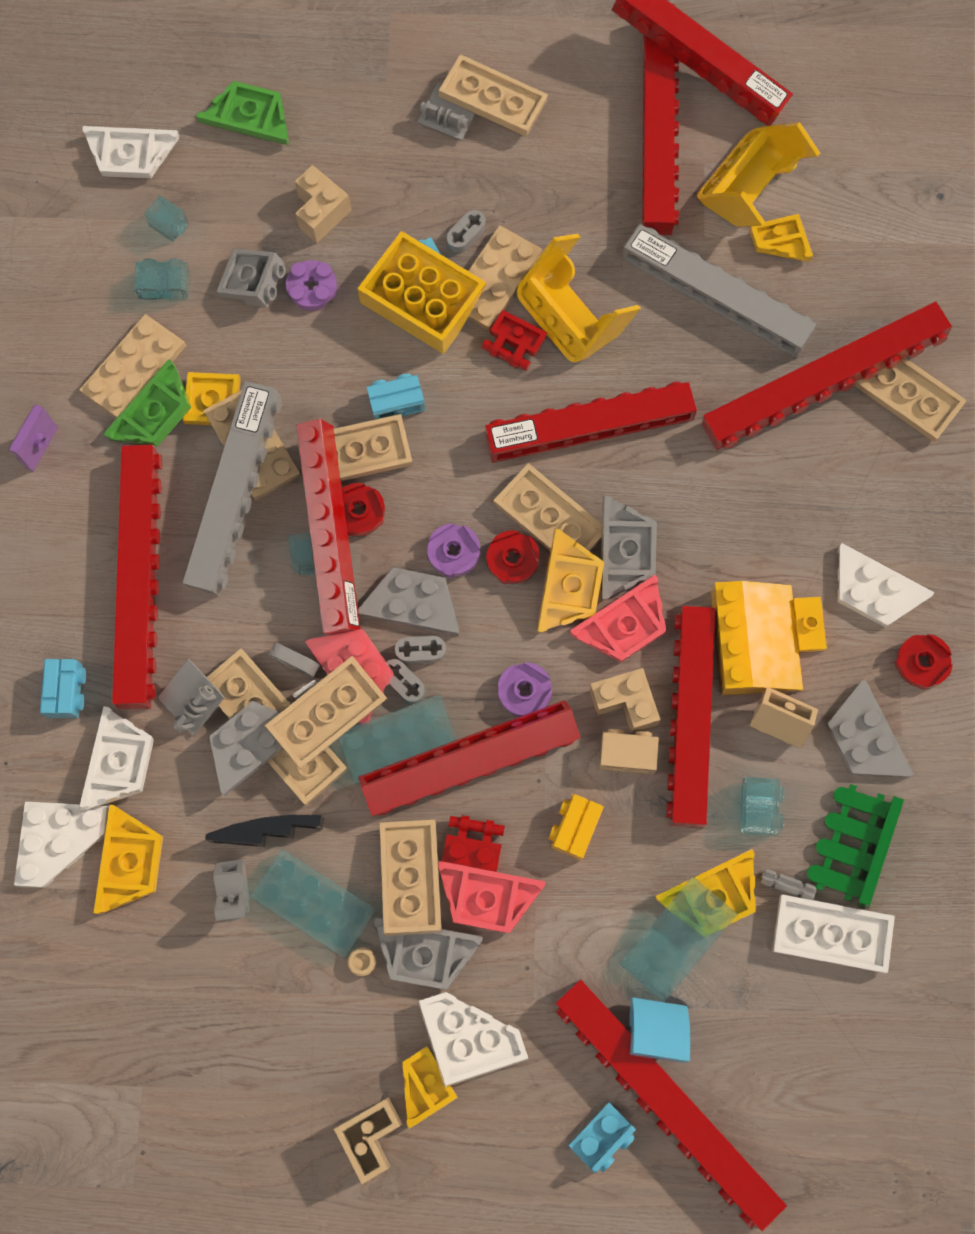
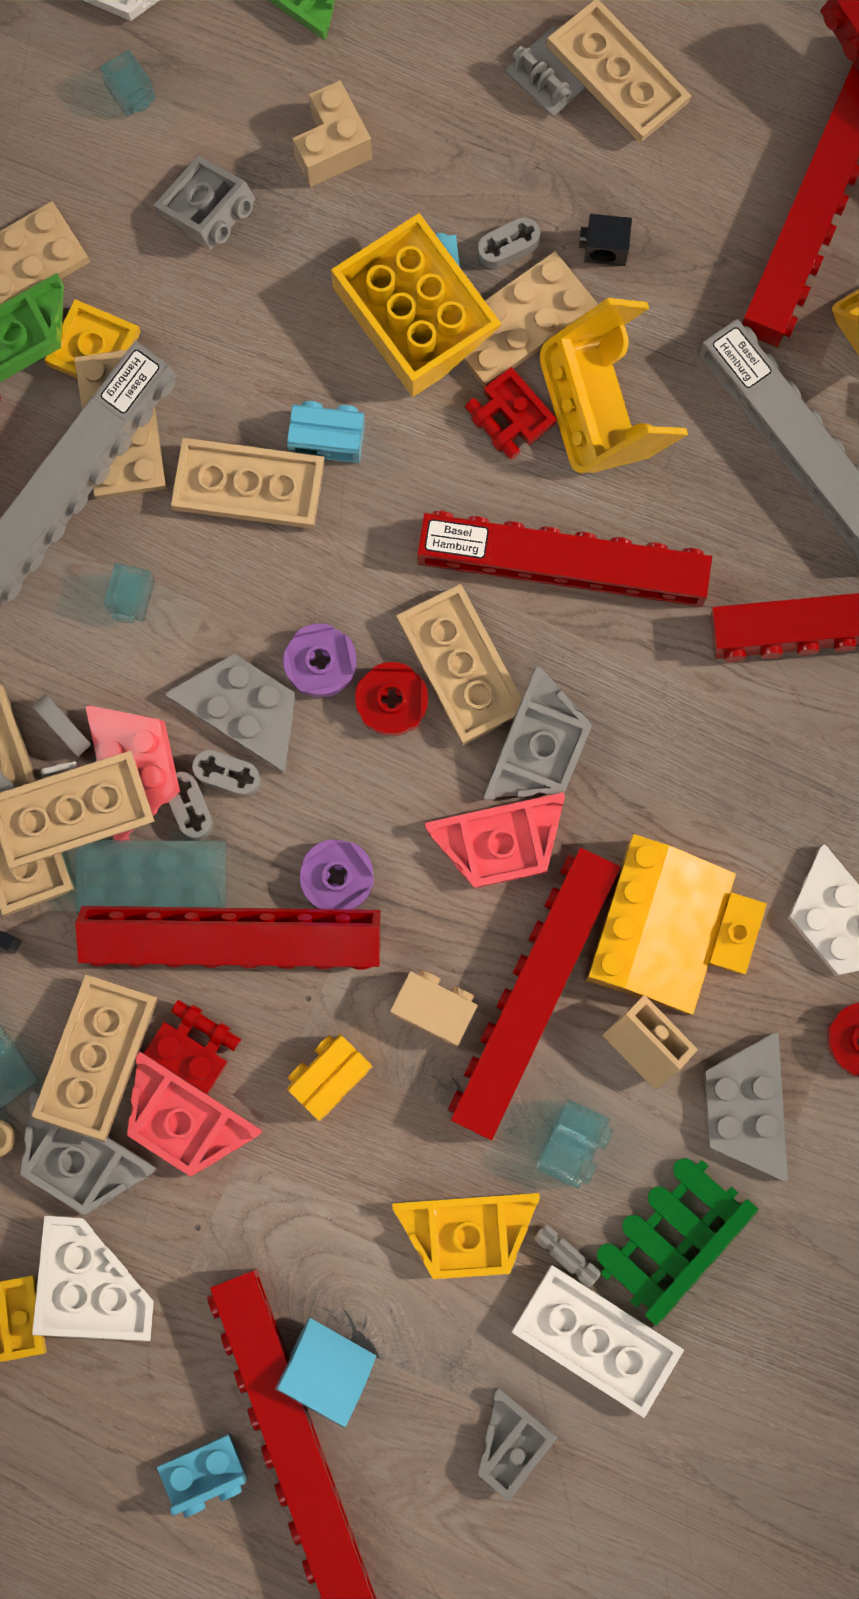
camera: 20 degrees right, 5 degrees up
(162, 279) = (90, 163): clear light blue brick -> none
(303, 273) = (287, 258): medium lavender plate -> none
(328, 527) = (169, 571): brick -> none
(373, 515) = (235, 577): red plate -> none
(531, 205) = (606, 239): none -> black brick
(570, 583) = (449, 761): yellow wing -> none
(630, 693) = (467, 932): tan brick -> none
(678, 938) = (398, 1268): clear light blue plate -> none
(806, 1029) = (512, 1446): none -> light grey wing

